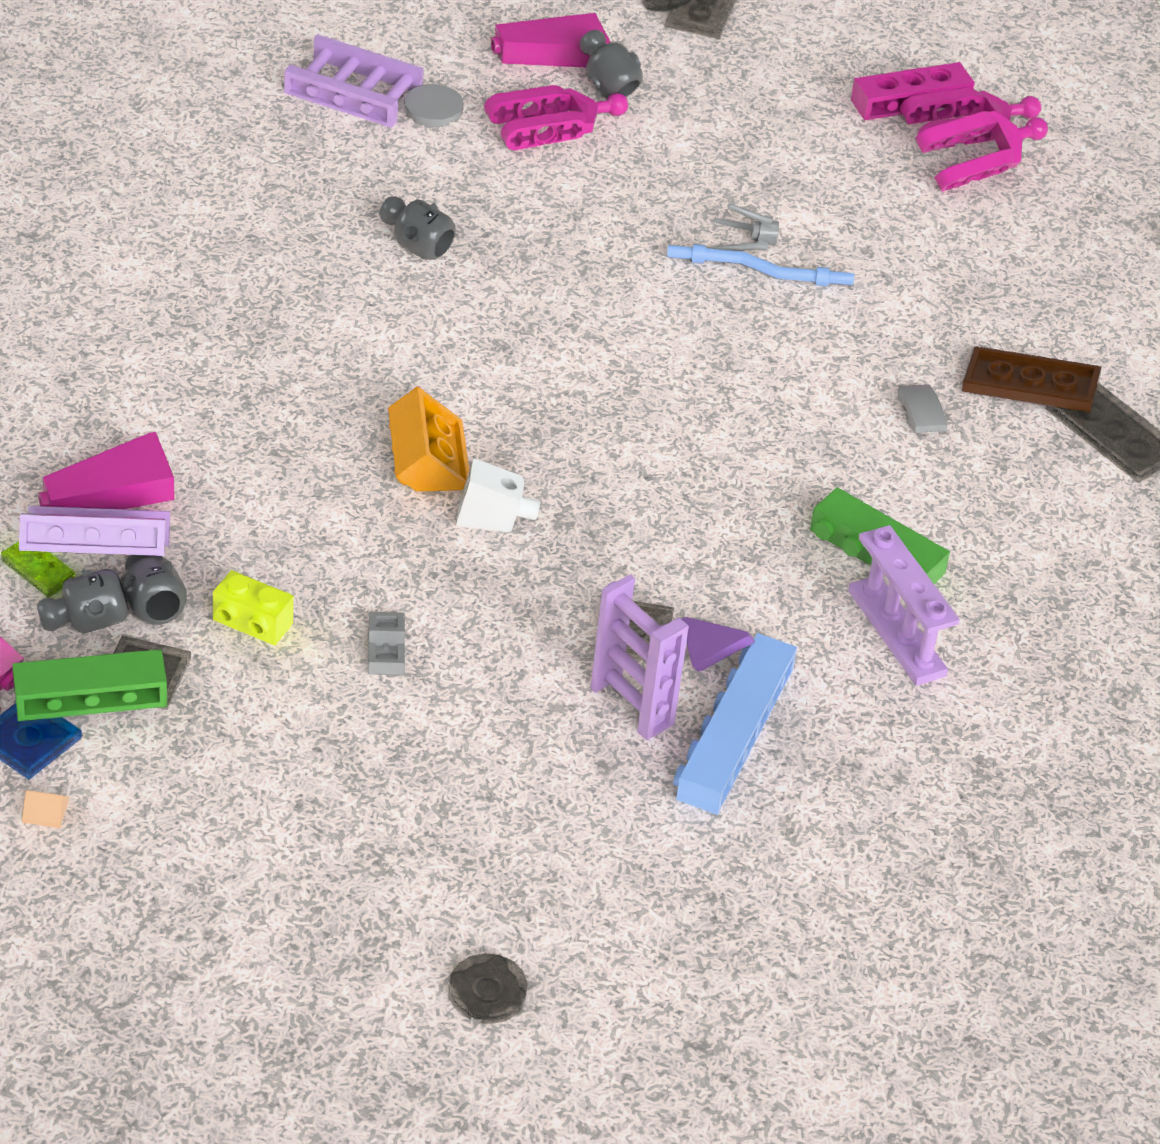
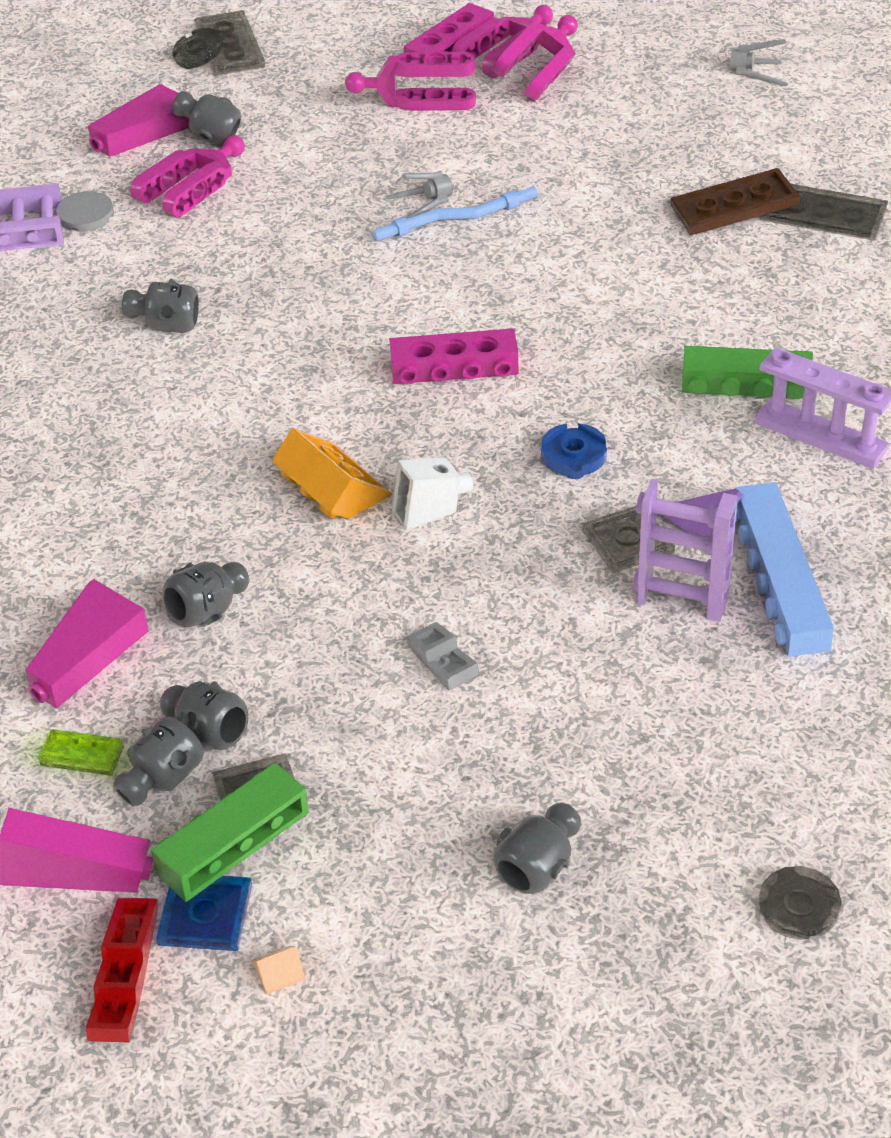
camera: 25 degrees left, 0 degrees up
(94, 530) = (117, 691): lavender fence -> none
(236, 488) = (203, 591): none -> dark grey piece
(253, 607) = (308, 685): neon yellow brick -> none
(312, 829) = (536, 848): none -> dark grey piece
(629, 395) = (454, 356): none -> dark pink brick
(674, 527) = (574, 463): none -> blue plate
(844, 107) = (420, 65): none -> dark pink piece
(923, 408) = (680, 260): light grey slope -> none

